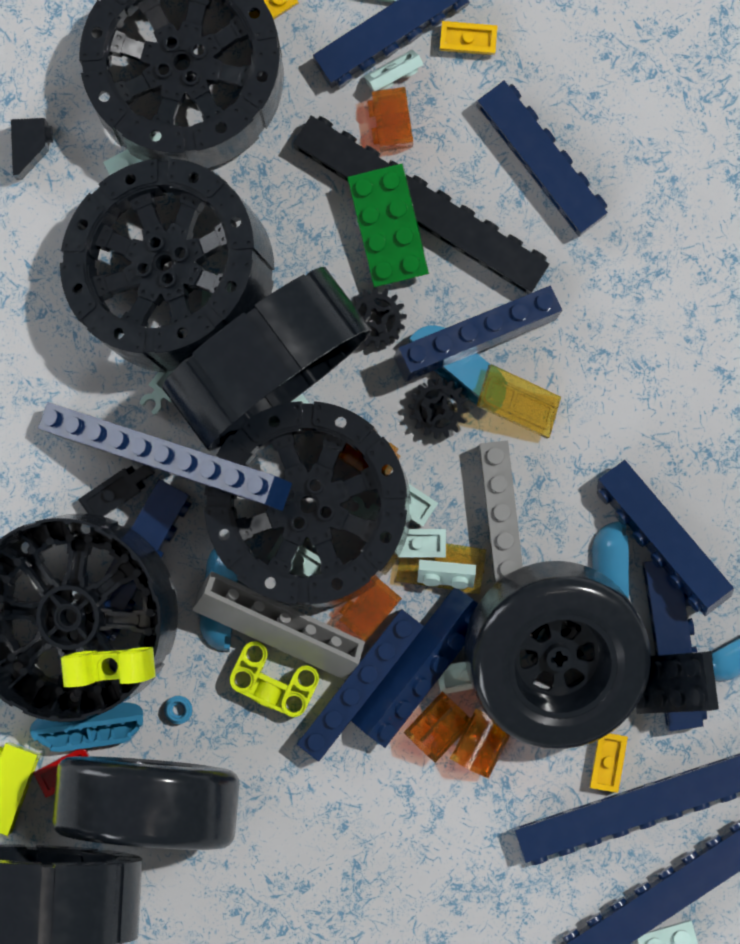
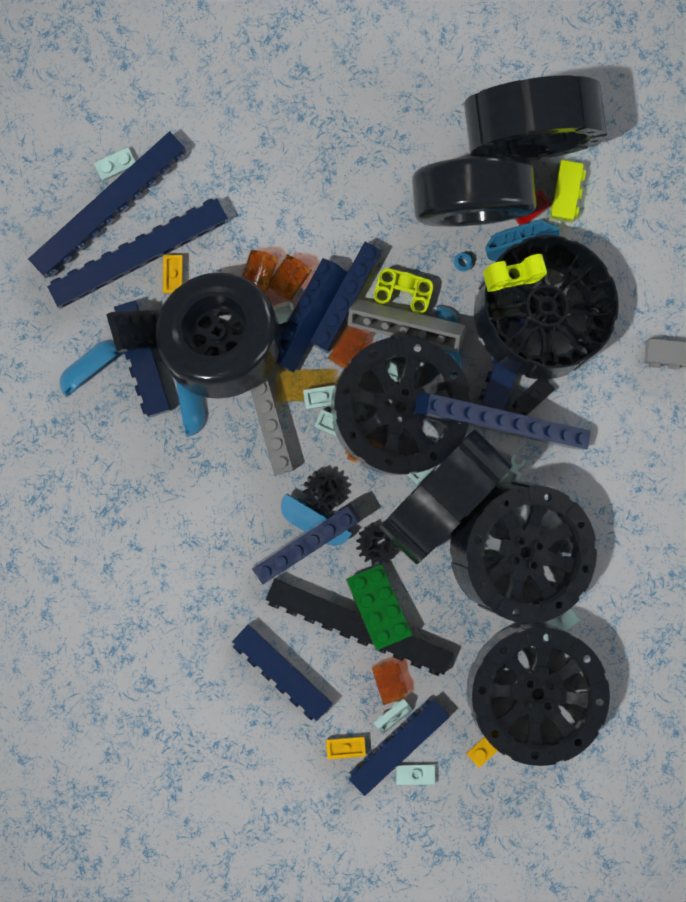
camera: 160 degrees right, 0 degrees up
(29, 144) = (631, 624): black slope -> none
(446, 573) = (294, 379): light aqua plate -> none
(518, 401) = (271, 503): clear yellow piece -> none
(664, 538) = (158, 426): dark blue brick -> none

